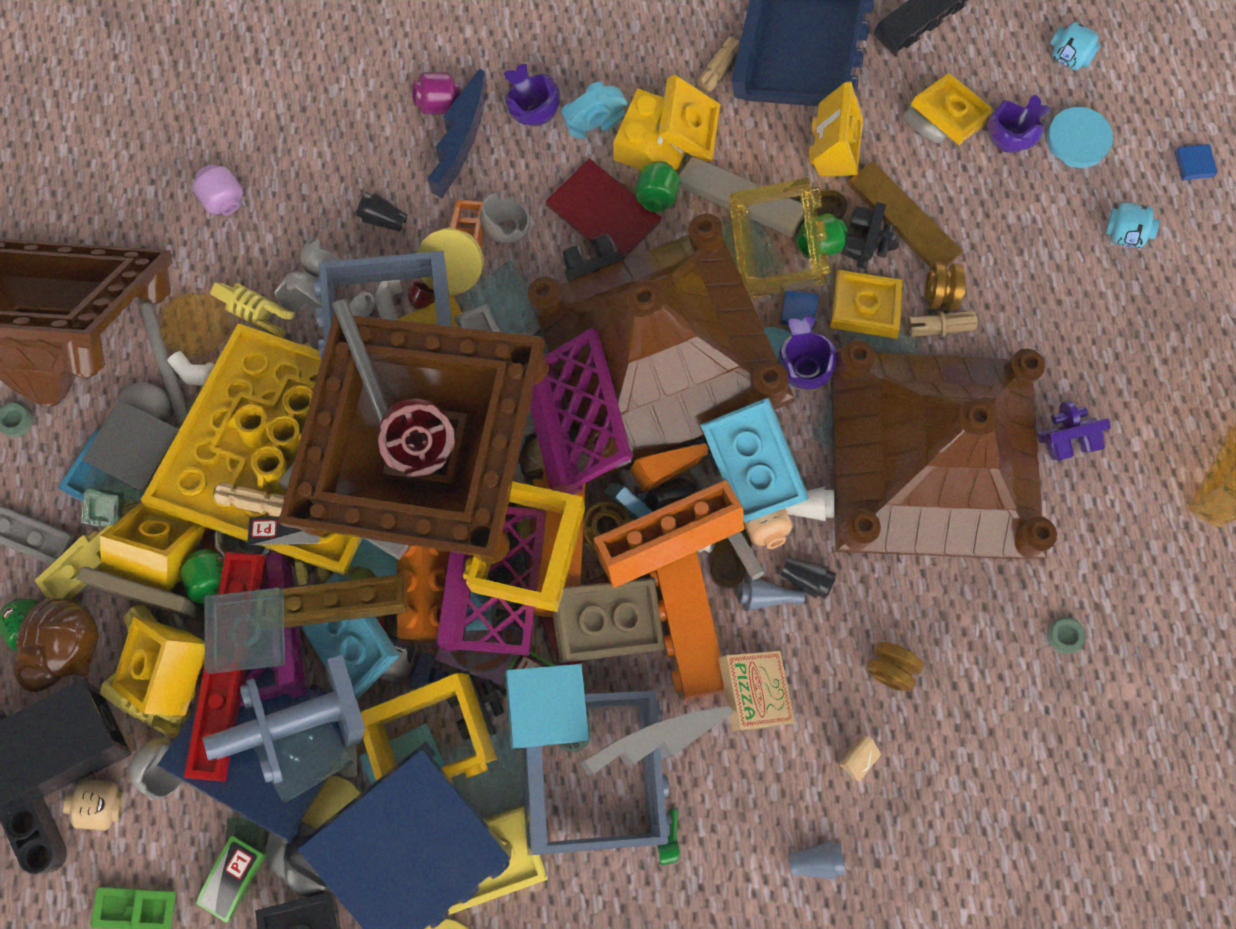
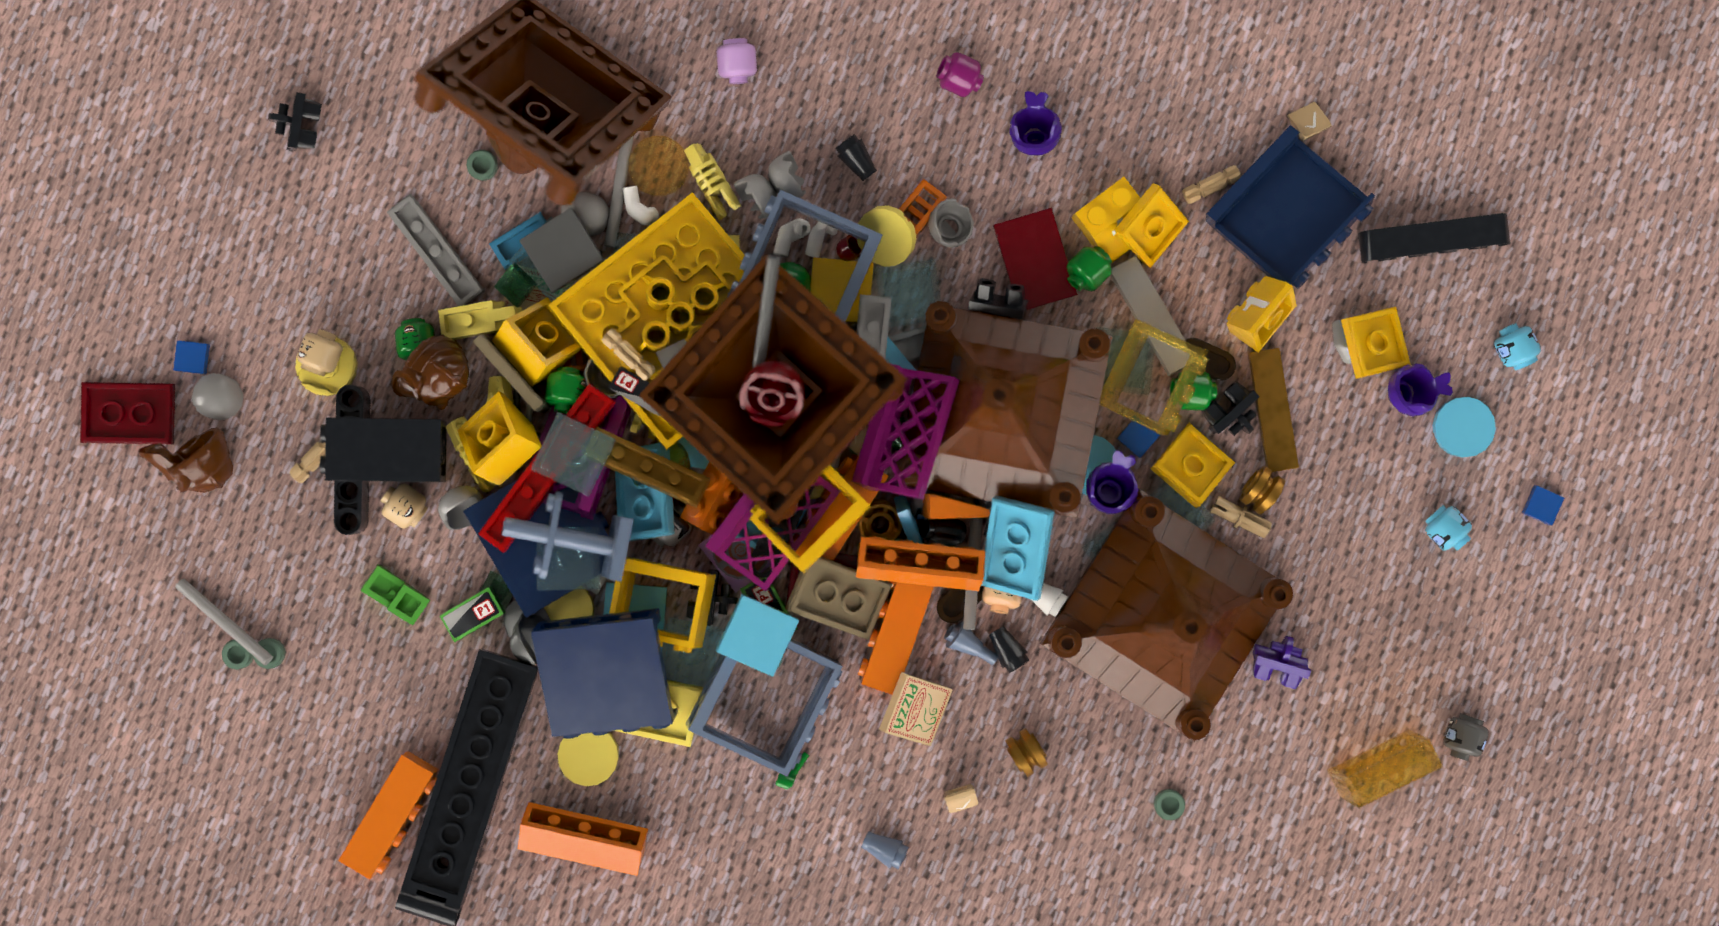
camera: 30 degrees right, 15 degrees up
(424, 672) = (686, 552): tile -> none
(461, 126) = (966, 116): dark blue slope -> none
(595, 108) = (1082, 173): medium azure plate -> none
(666, 735) = (833, 705): light grey slope -> none

